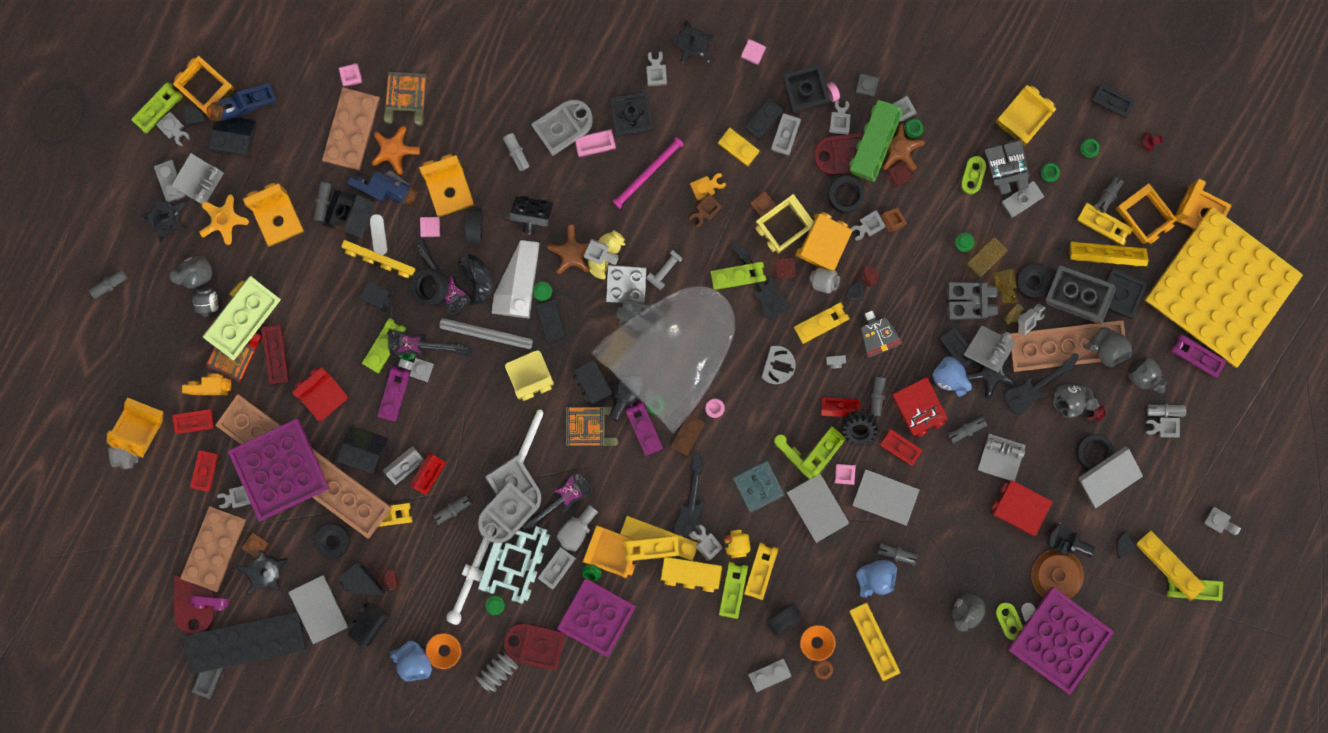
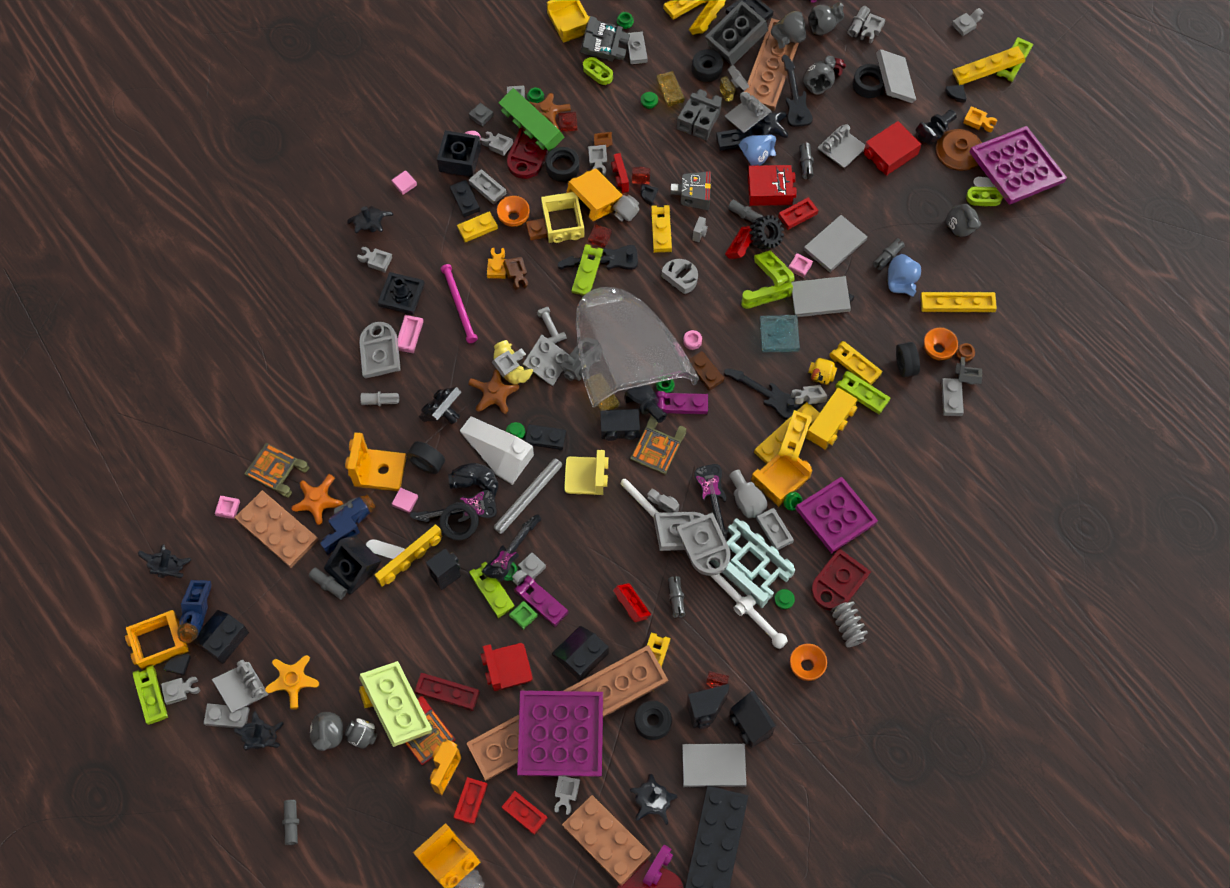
camera: 65 degrees left, 20 degrees down
(255, 544) = (622, 798): dark orange plate -> none
(267, 206) = (303, 628): light orange bracket -> none
(271, 53) = (164, 563): none -> black piece
(374, 384) = (523, 615): none -> bright green tile
(403, 465) = (613, 620): light grey plate -> none
(411, 662) = (805, 696): medium blue piece -> none
(535, 462) = (665, 503): none -> light grey plate
(772, 164) = (510, 205): none -> orange piece
(799, 681) = (968, 374): none -> dark grey bracket
(868, 249) = (621, 178): none -> red plate
(1005, 282) = (698, 82): clear yellow plate -> none
(1100, 578) = (977, 118): none -> light orange plate

